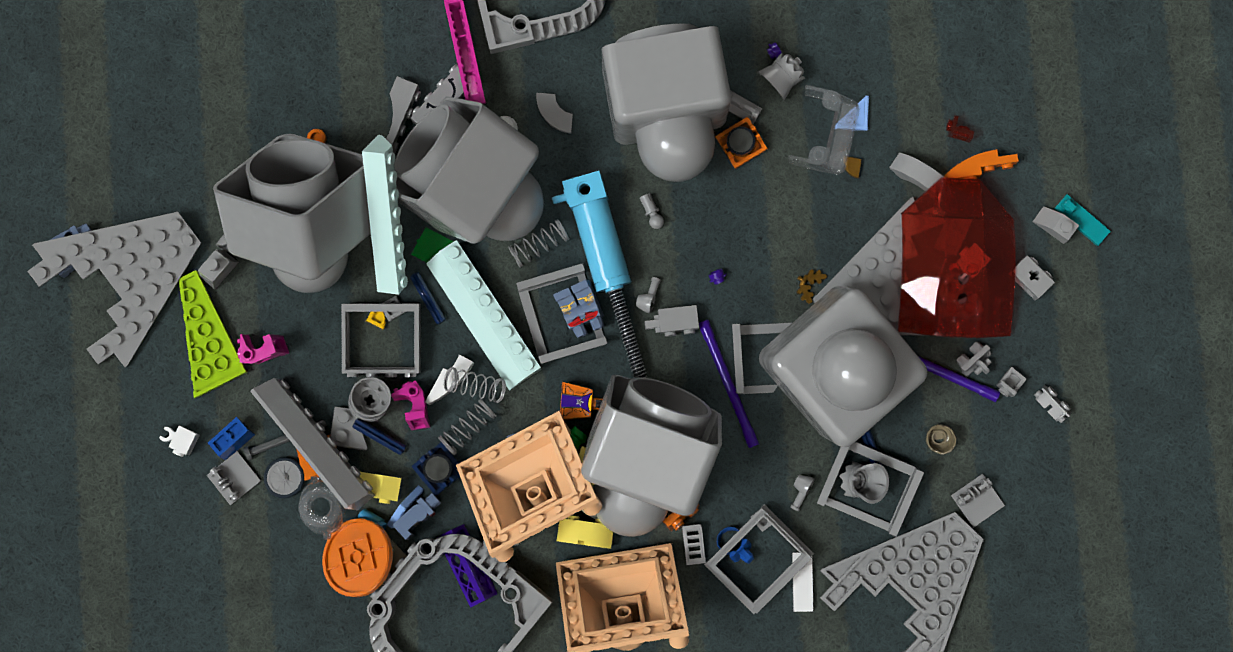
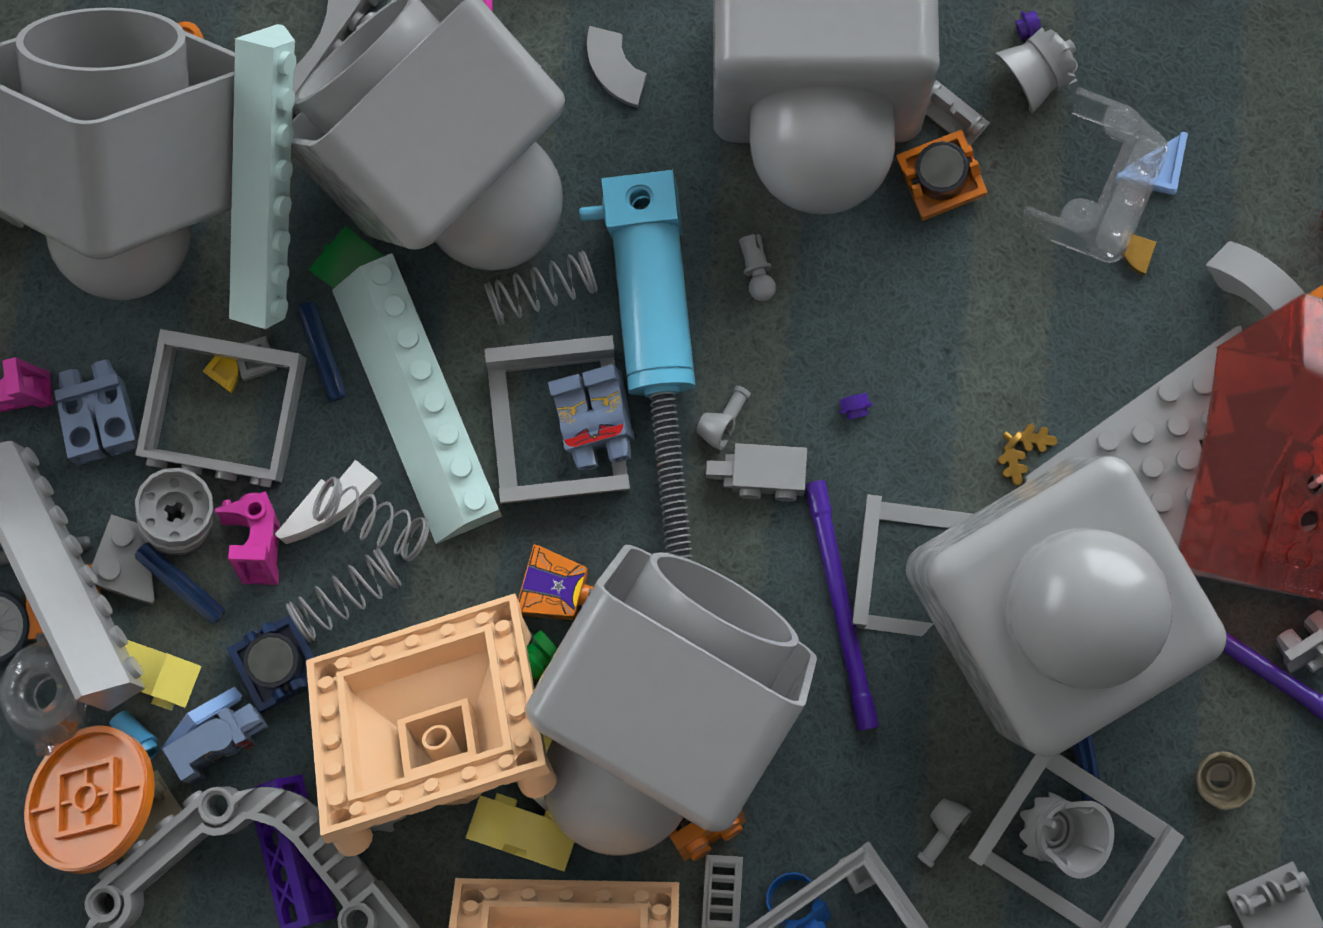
camera: 15 degrees right, 5 degrees down
(311, 348) = (95, 414): none -> sand blue hips

